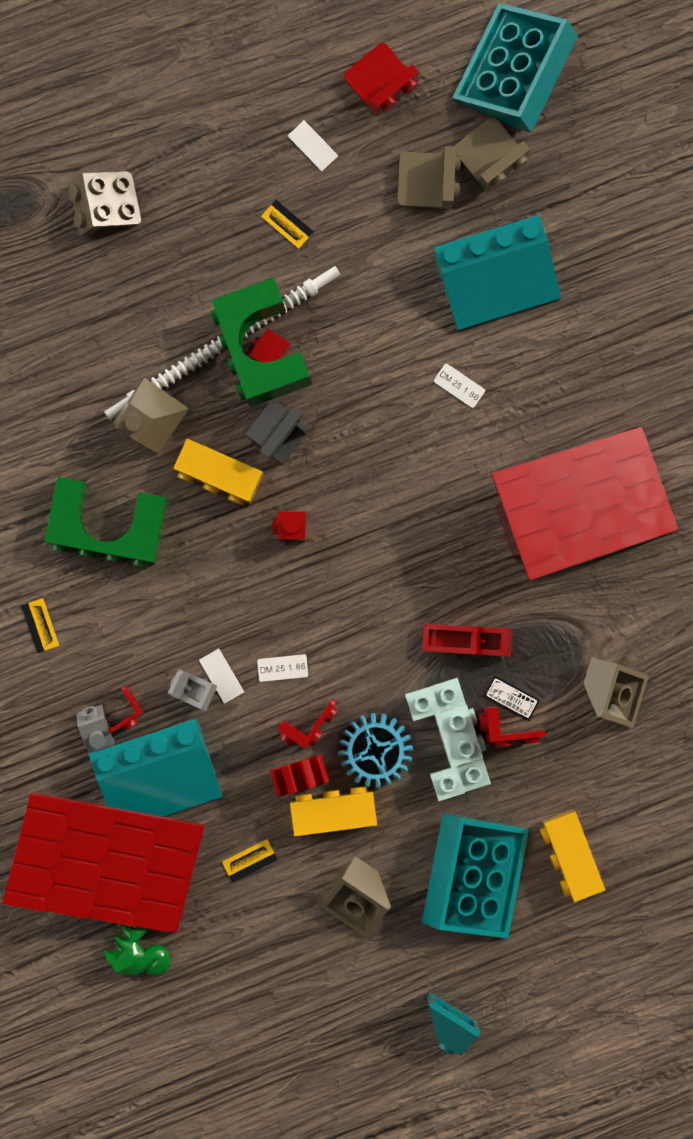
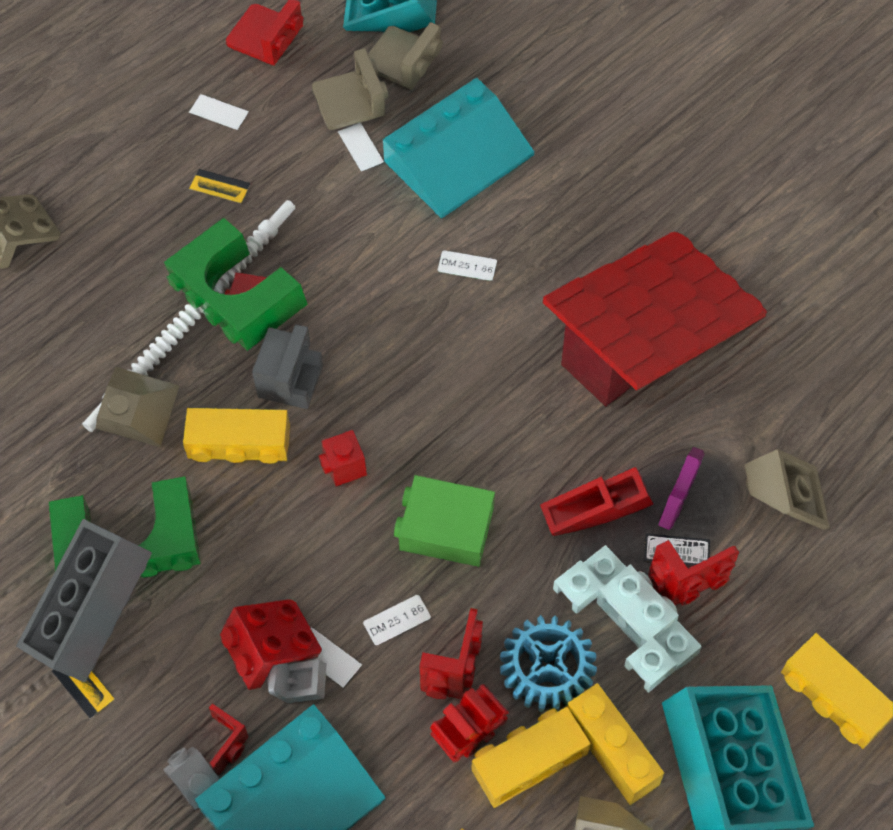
camera: 20 degrees left, 25 degrees down
(58, 571) = (83, 600): none -> dark grey slope
(183, 650) = (266, 637): none -> red bracket
(347, 608) = (445, 520): none -> bright green brick
(395, 829) = (616, 744): none -> yellow brick
(419, 232) = (360, 146): none -> white sticker
(535, 657) = (681, 488): none -> magenta tile

